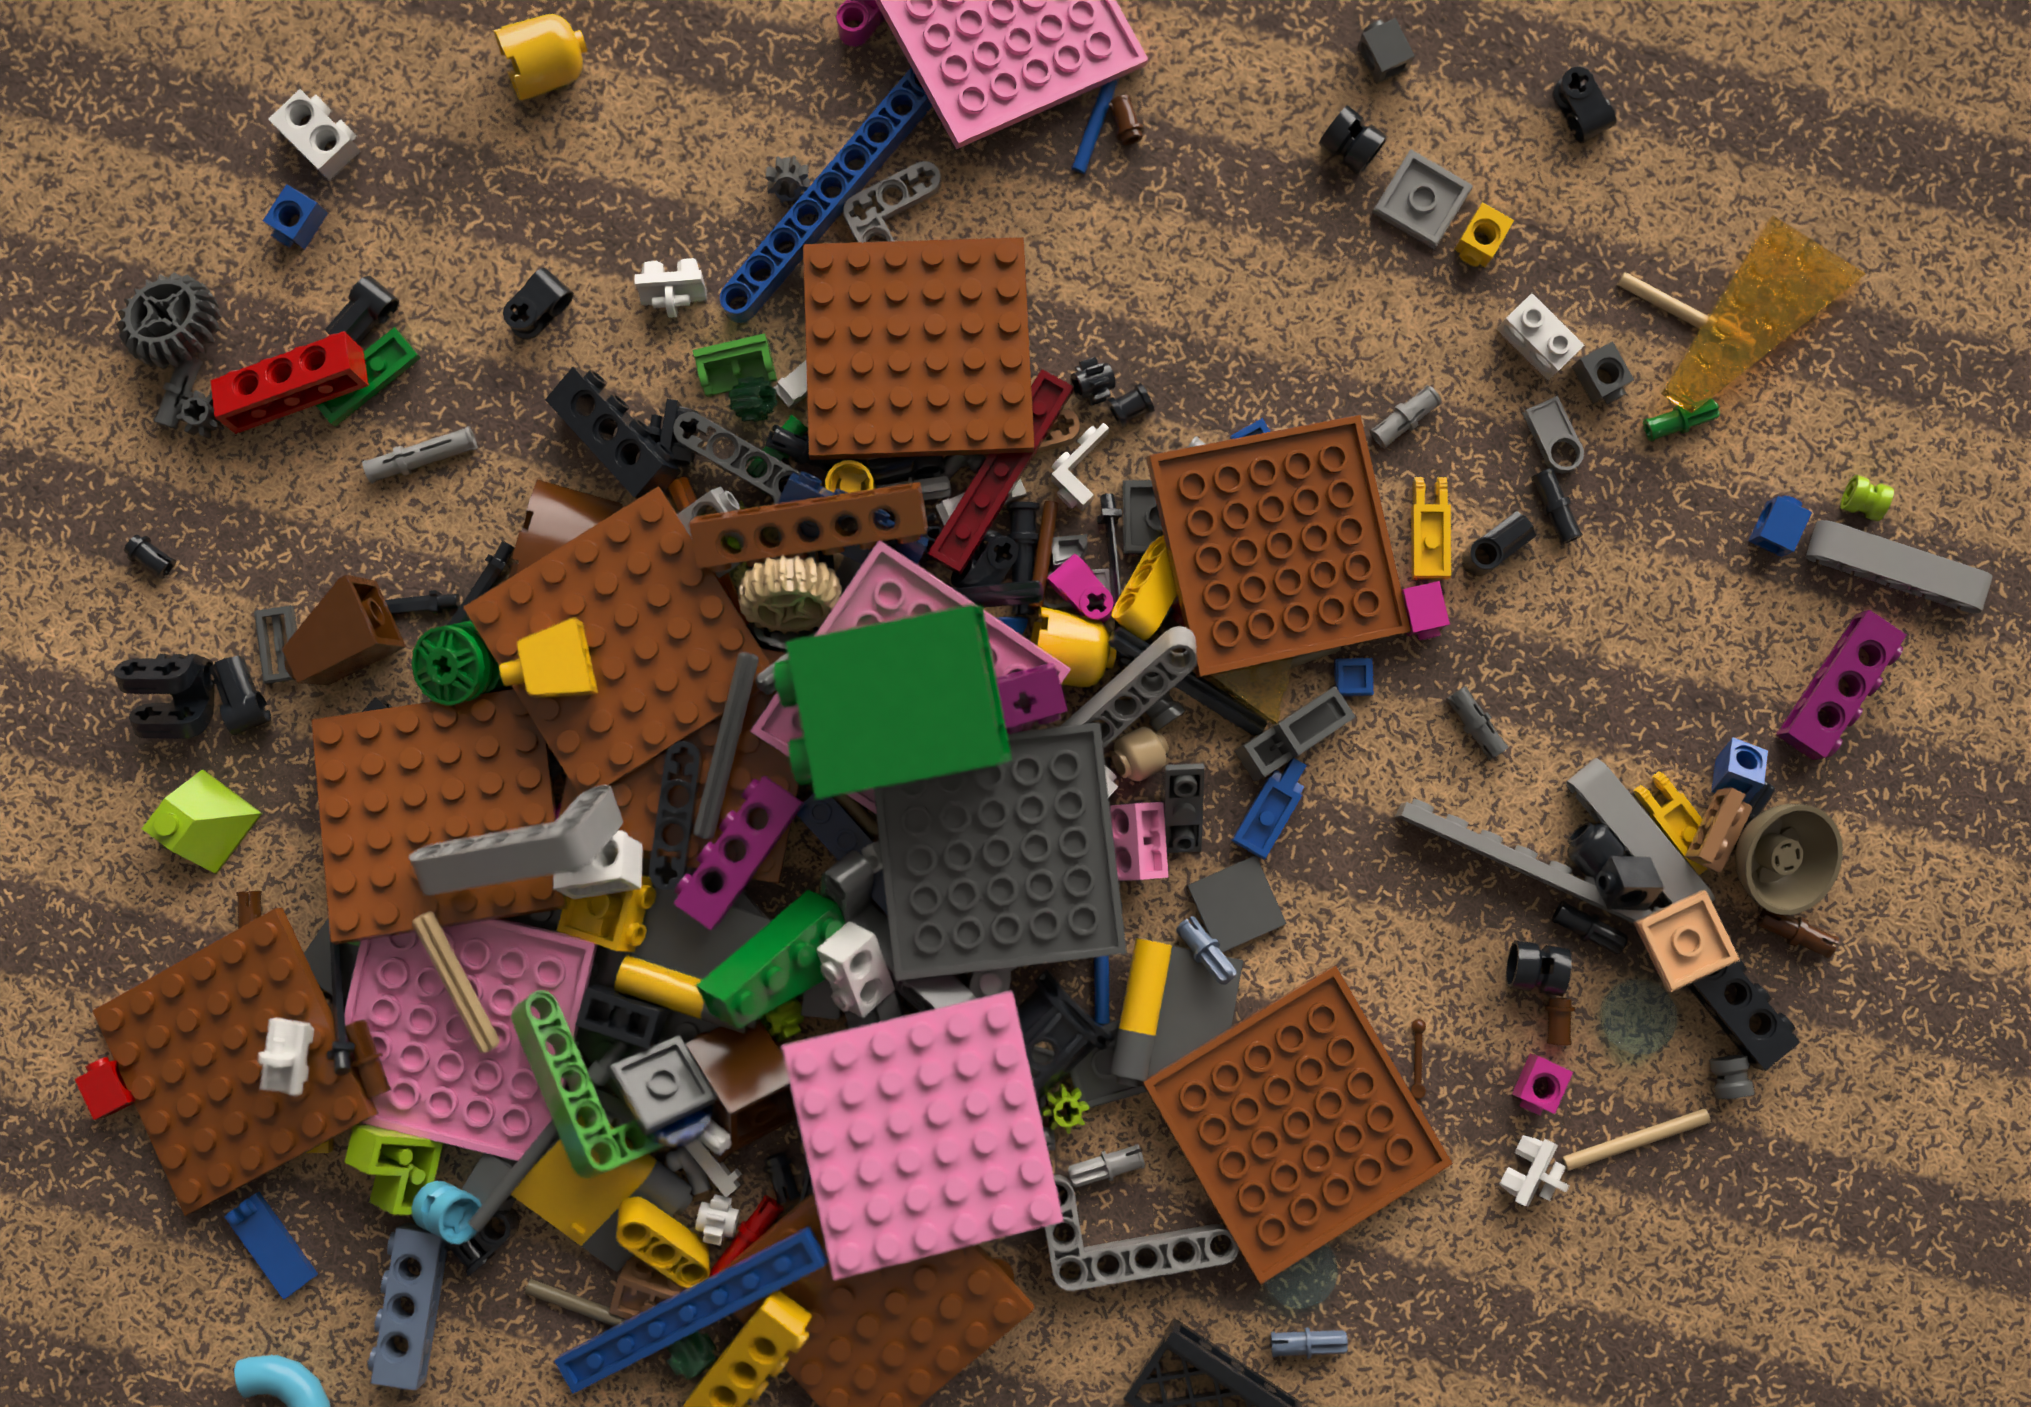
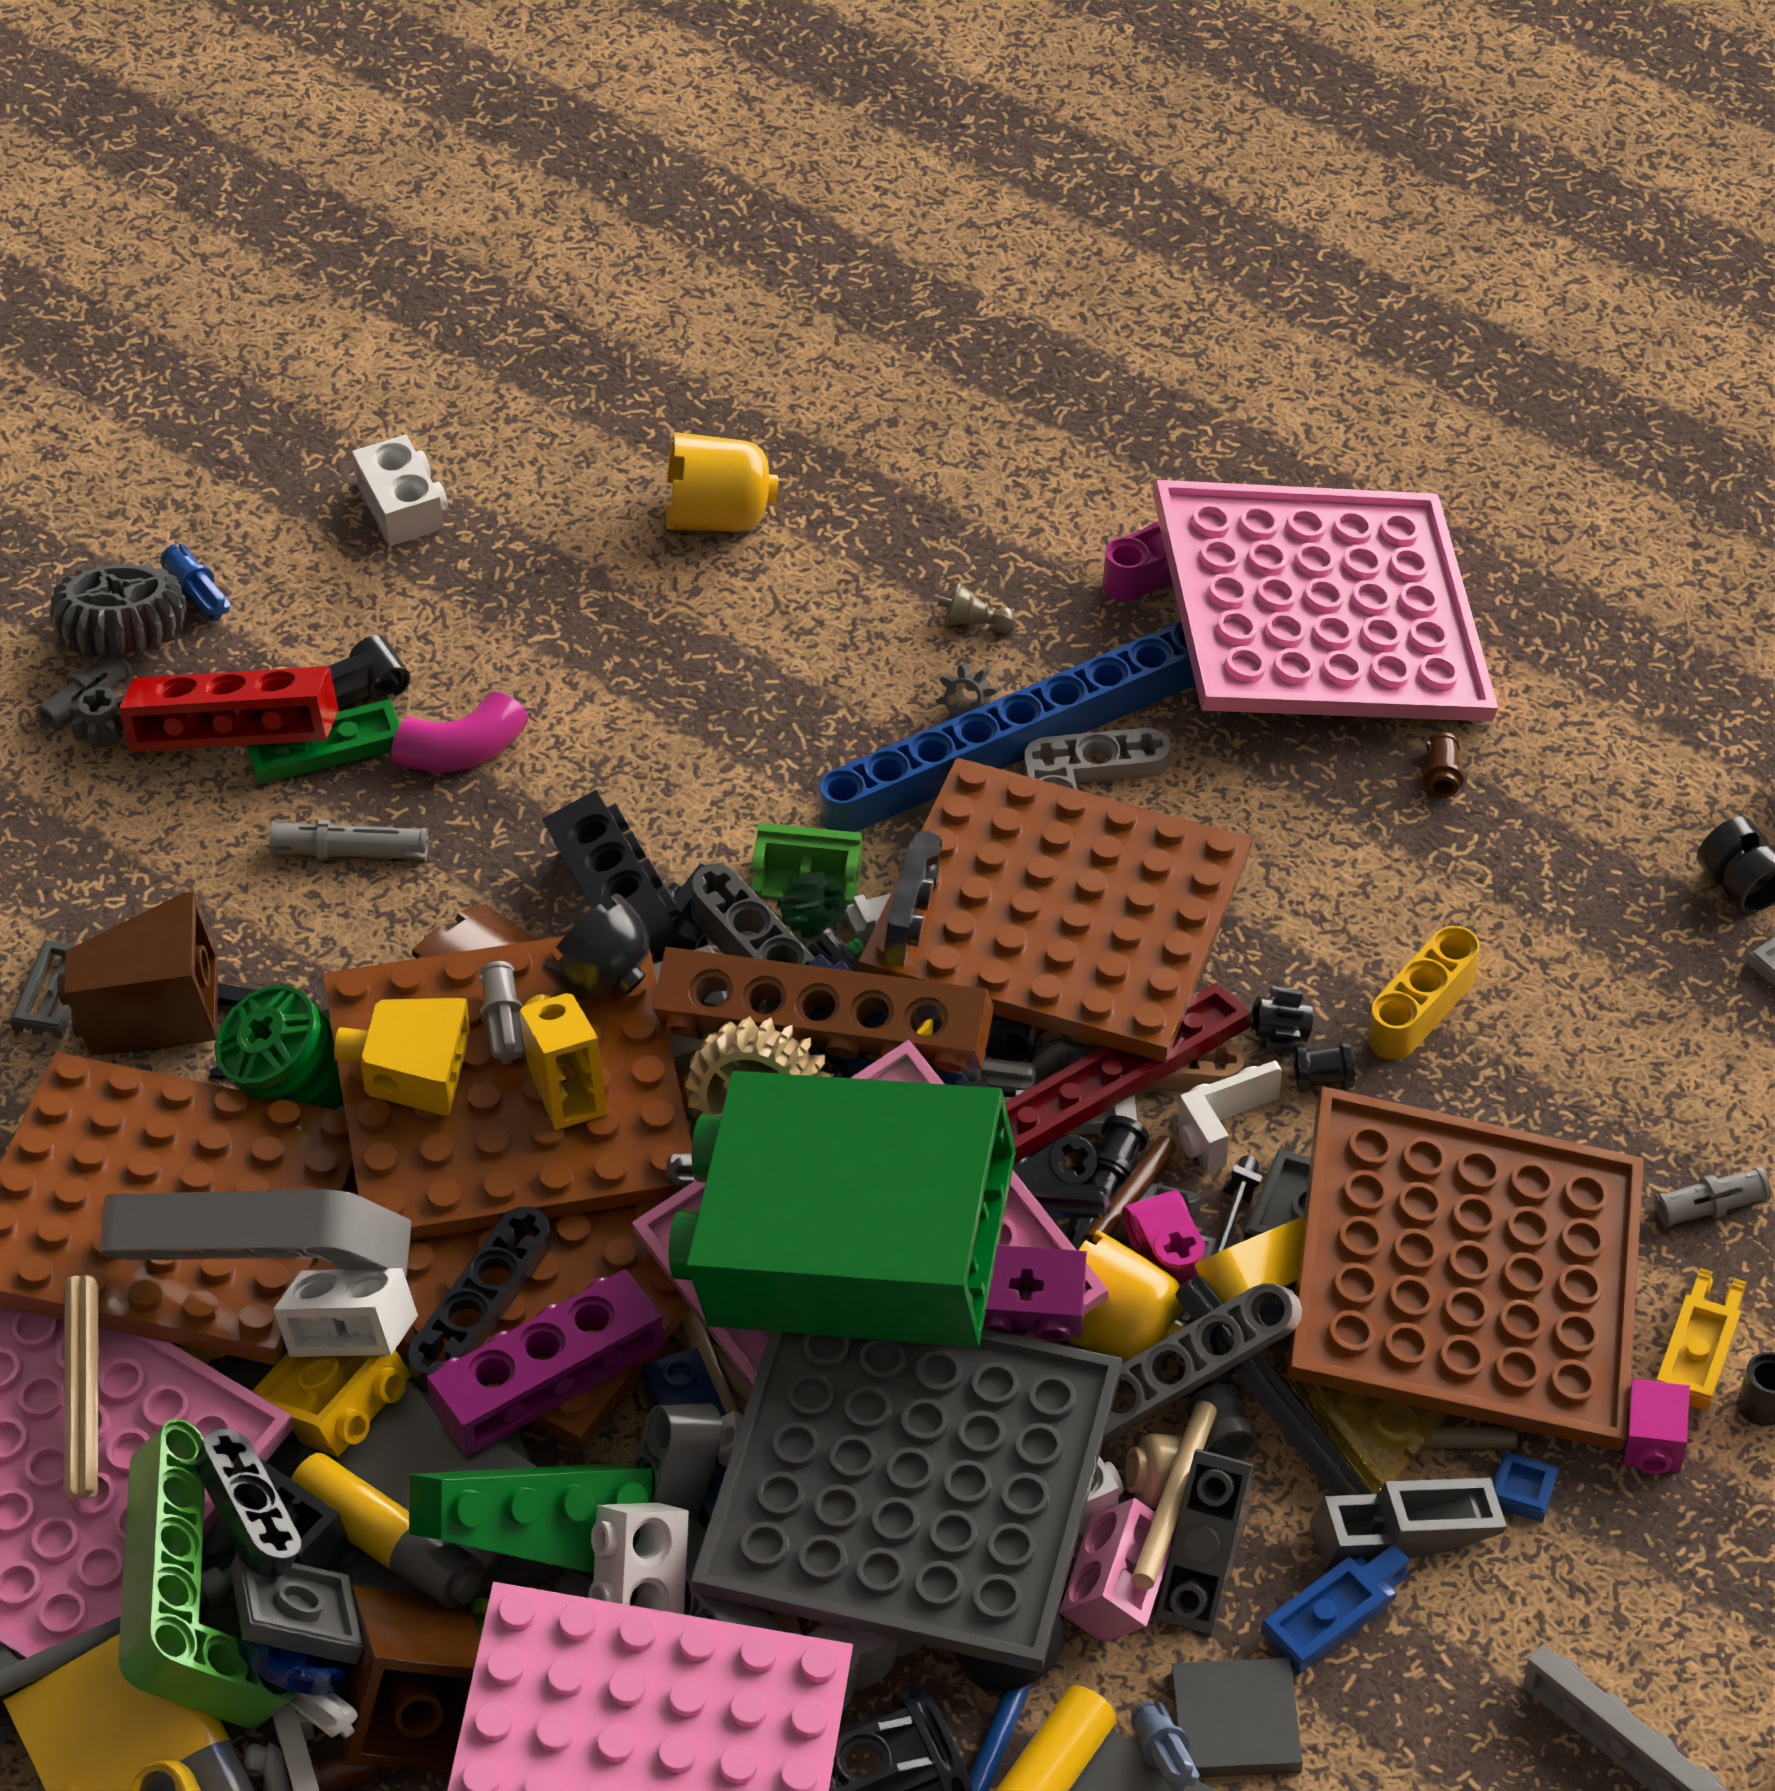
camera: 20 degrees right, 35 degrees down
(210, 268) = (195, 581): none -> blue axle
(292, 203) = (328, 560): blue brick -> none
(458, 346) = (461, 742): none -> dark pink cylinder
(540, 300) = (584, 726): black piece -> none
(599, 605) = (501, 1011): none -> light grey axle
(602, 1017) = (246, 1525): none -> black beam
(648, 541) = (602, 953): none -> black cylinder
(654, 633) = (557, 1034): none -> yellow torso
(671, 288) = (763, 761): white hips -> none
(726, 745) = (592, 1224): dark grey axle -> none
(758, 98) = (969, 610): none -> dark tan piece
(827, 395) = (912, 894): none -> black hinge
(1094, 126) = (1398, 764): blue bar -> none
(1156, 786) = (1172, 1497): none -> tan bar
(1178, 306) = (1423, 992): none -> yellow beam
(1477, 723) = (1690, 1599): dark grey pin -> none

